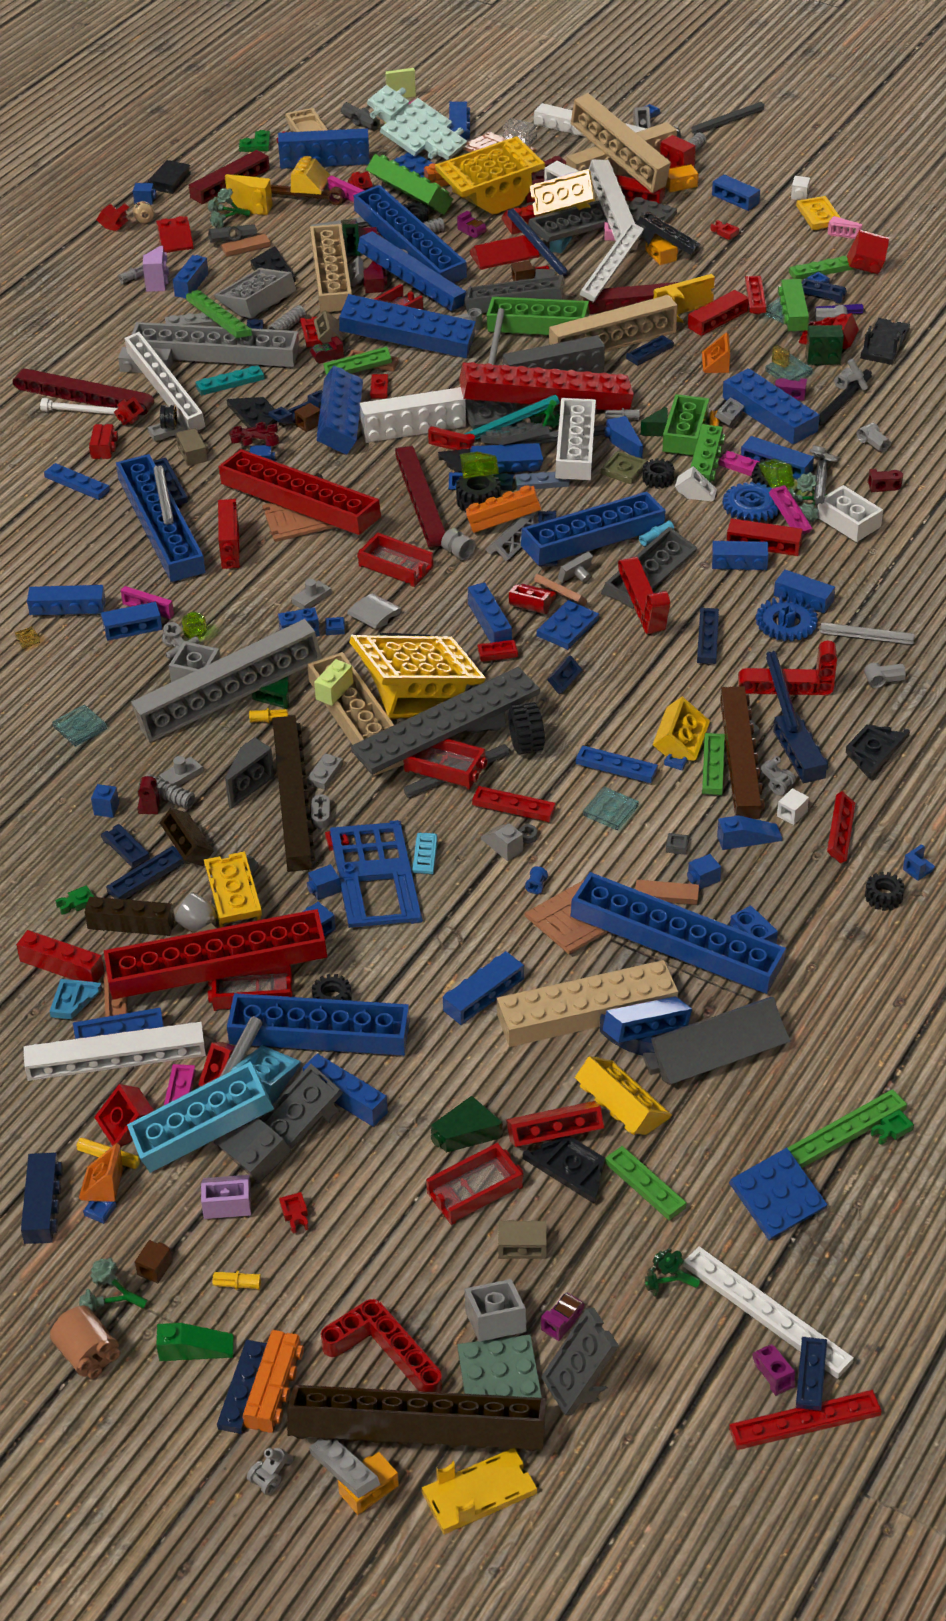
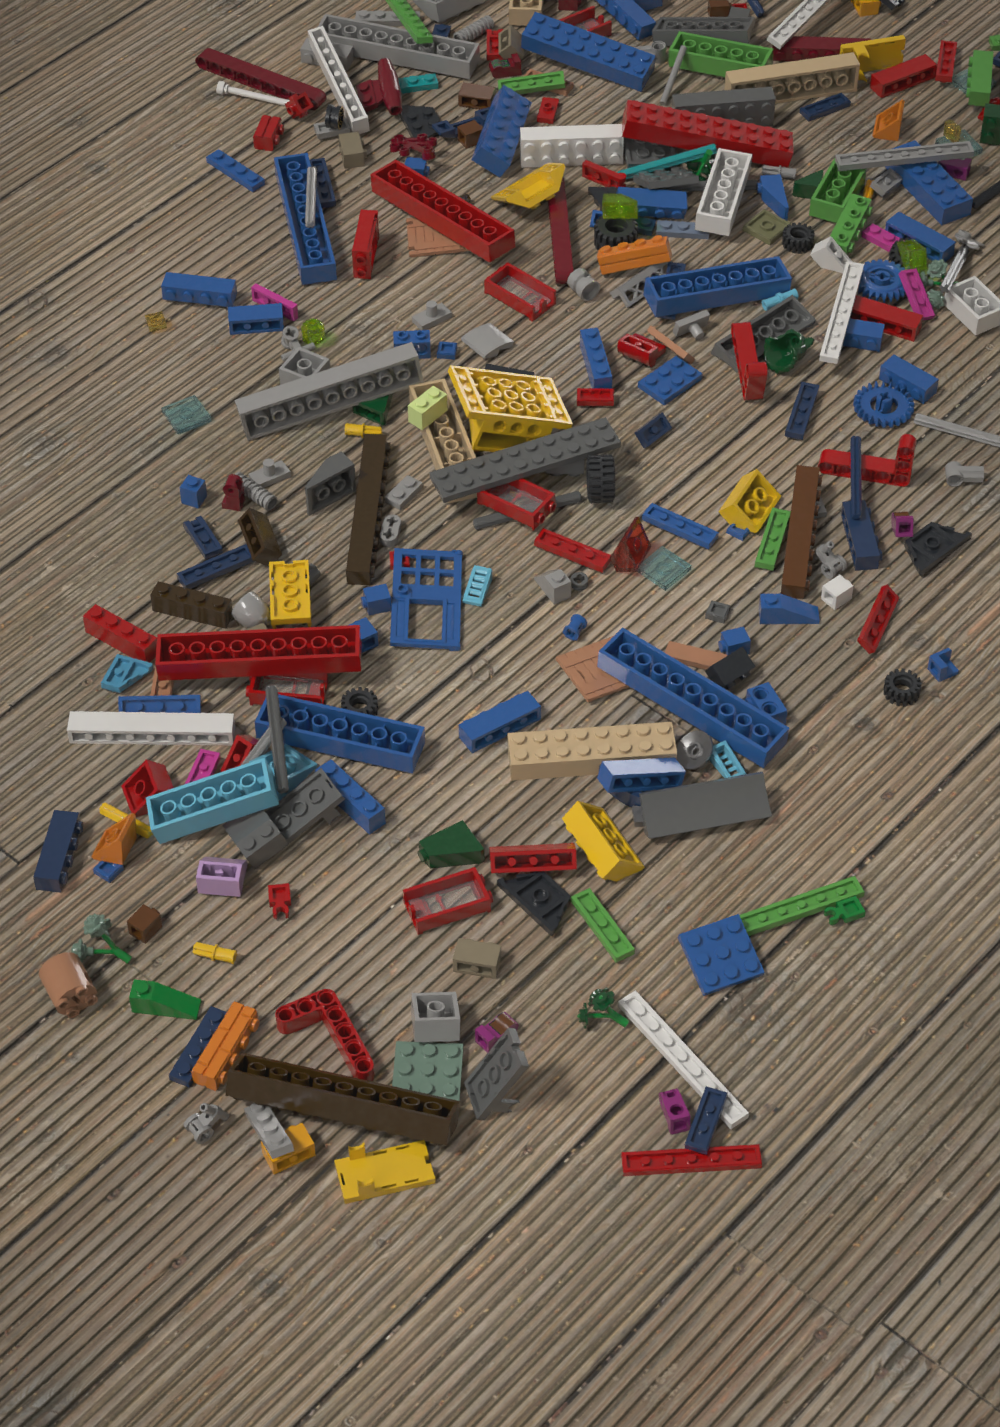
camera: 10 degrees right, 5 degrees up
(76, 899) = (147, 582): green plate -> none
(211, 385) = (386, 89): none -> dark red plate
(257, 1041) = (277, 739): none -> dark grey axle
(305, 381) = (476, 95): none -> reddish brown brick
(385, 458) = (533, 187): none -> yellow slope
(574, 792) = (631, 548): none -> clear red slope
(677, 579) = (785, 350): none -> dark green hair
(690, 978) = (689, 746): none -> flat silver dish
(708, 897) = (731, 668): none -> black brick
(713, 990) = (728, 754): none -> medium azure slope
(723, 536) = (841, 312): none -> white plate
(743, 383) = (905, 155): none -> light grey plate
(839, 730) = (902, 524): none -> magenta leg

